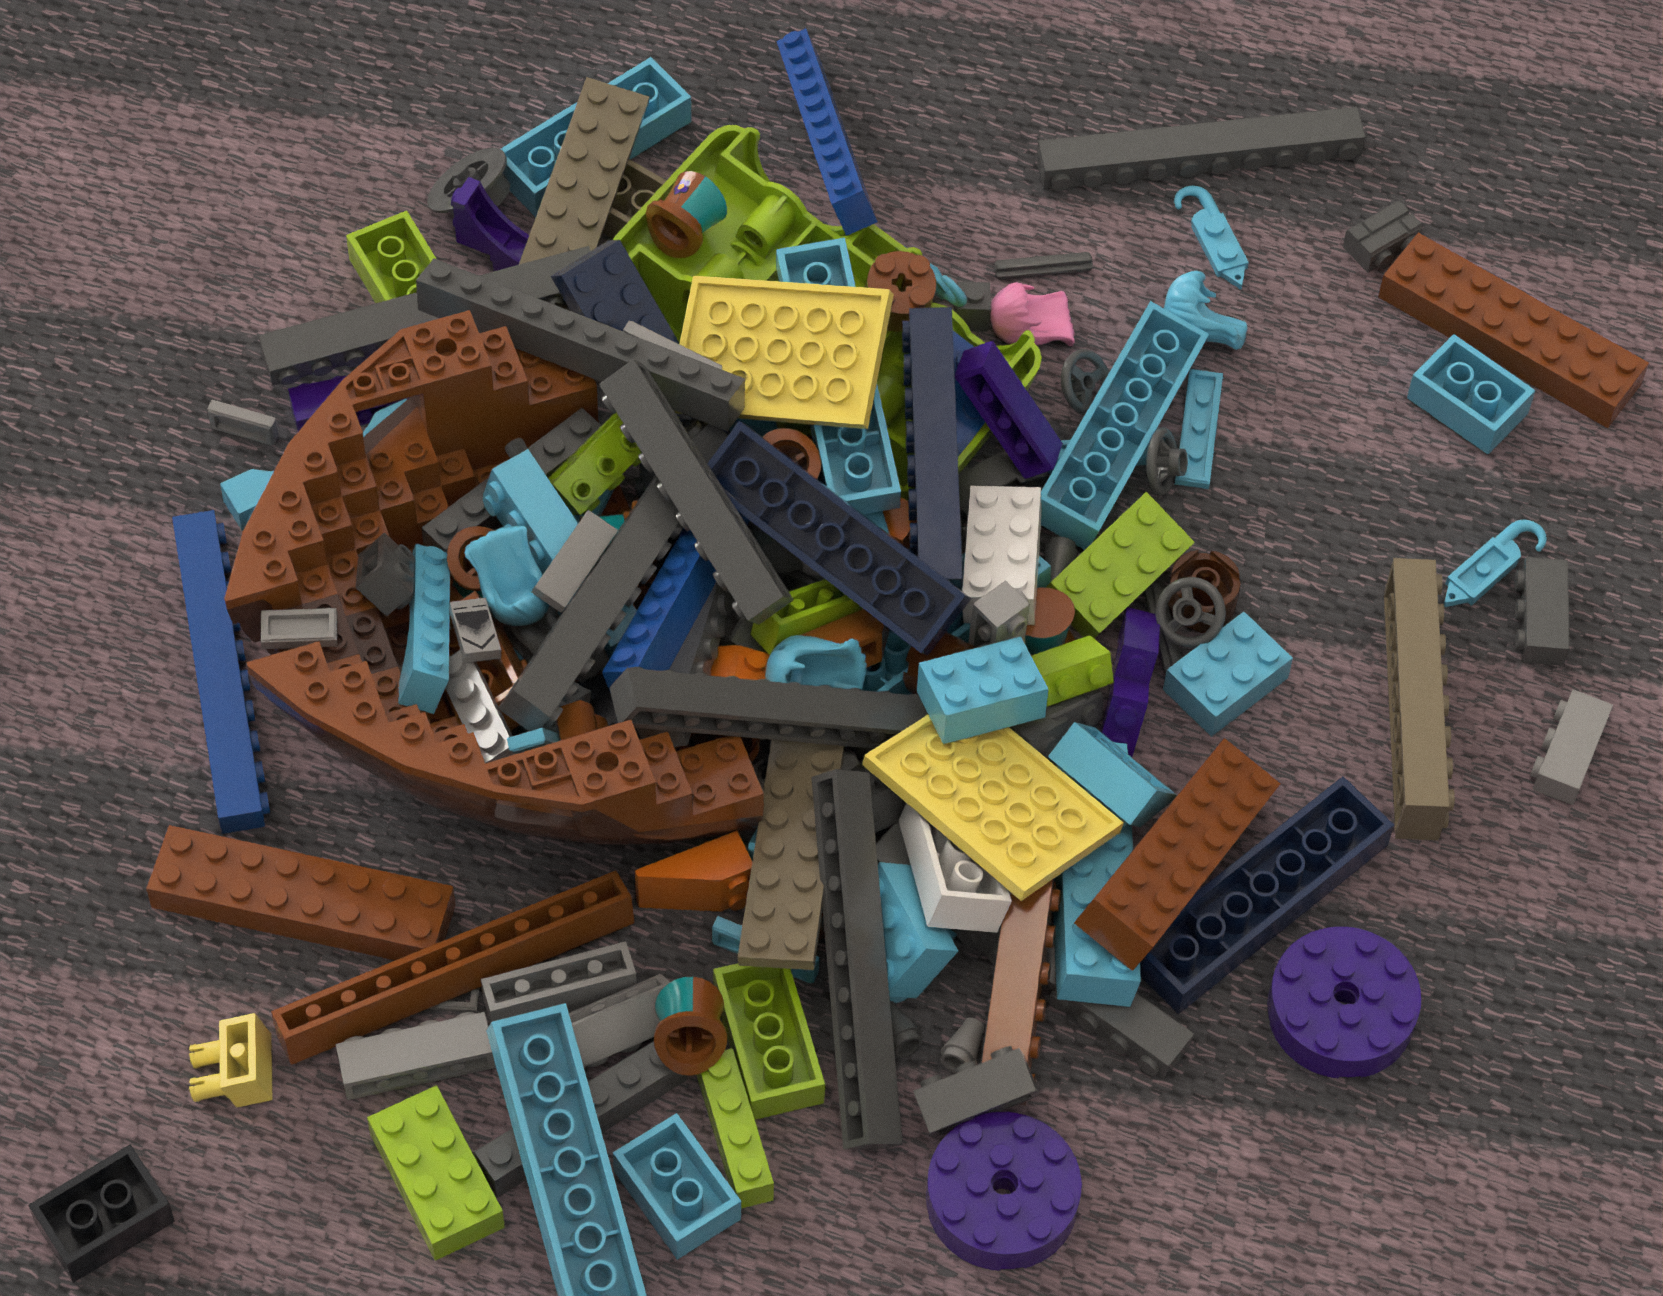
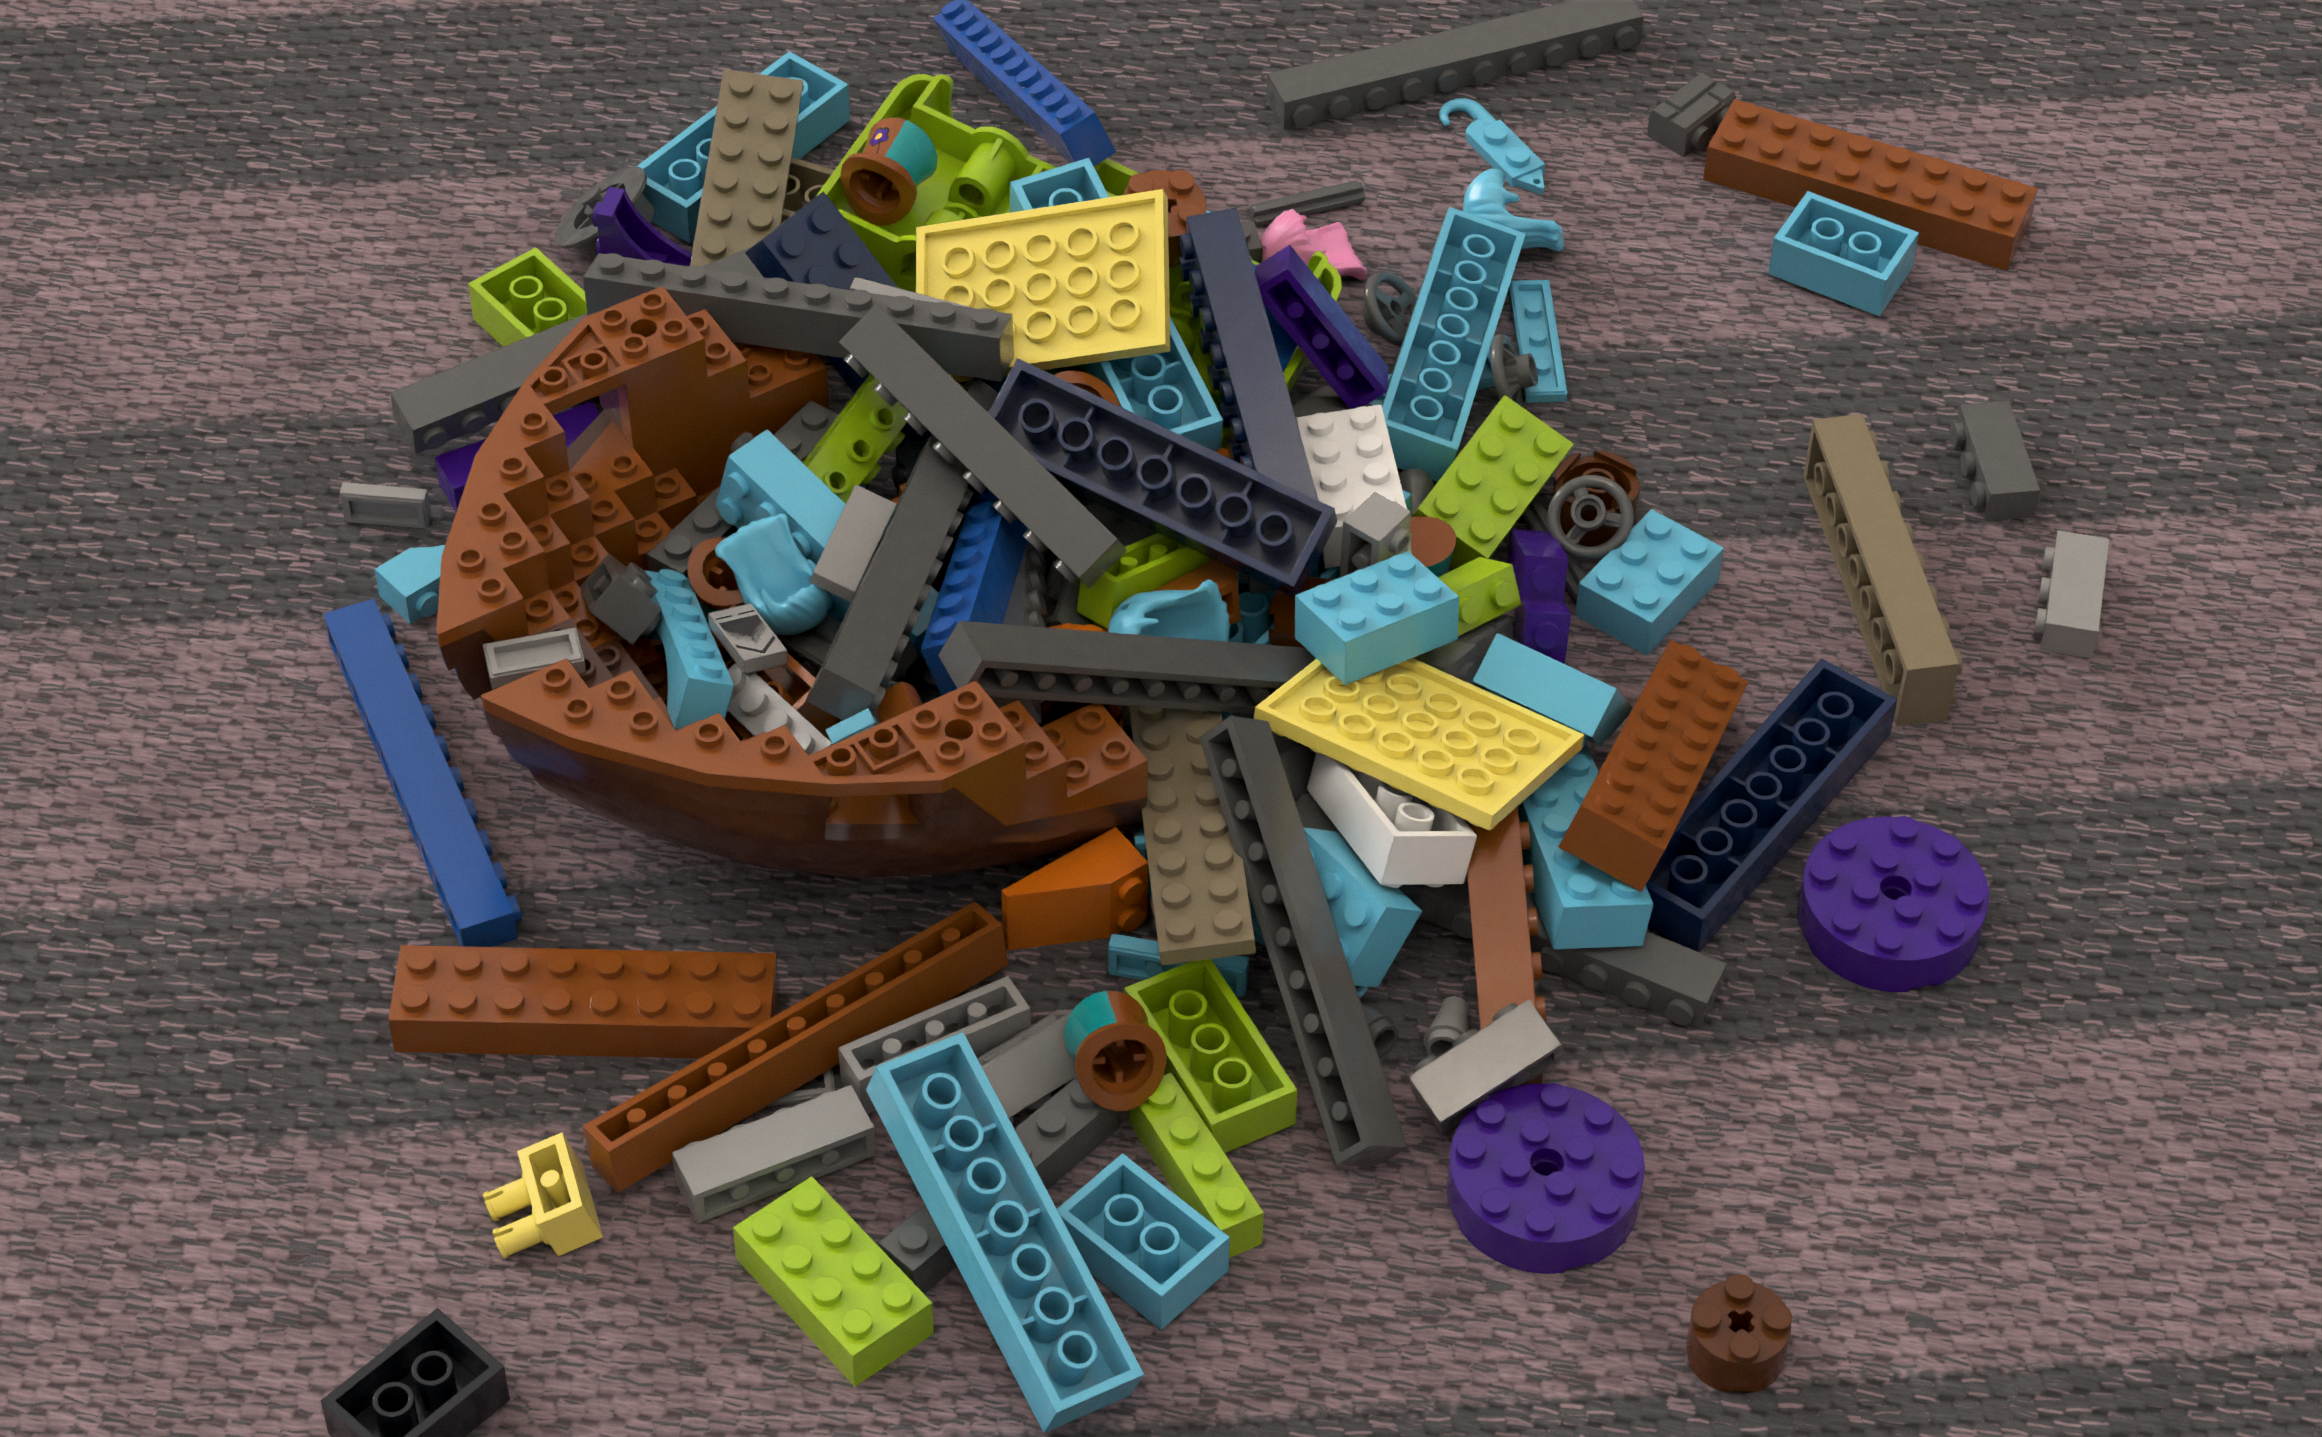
camera: 10 degrees left, 10 degrees down
(1489, 564) = (1920, 422): medium azure plate -> none

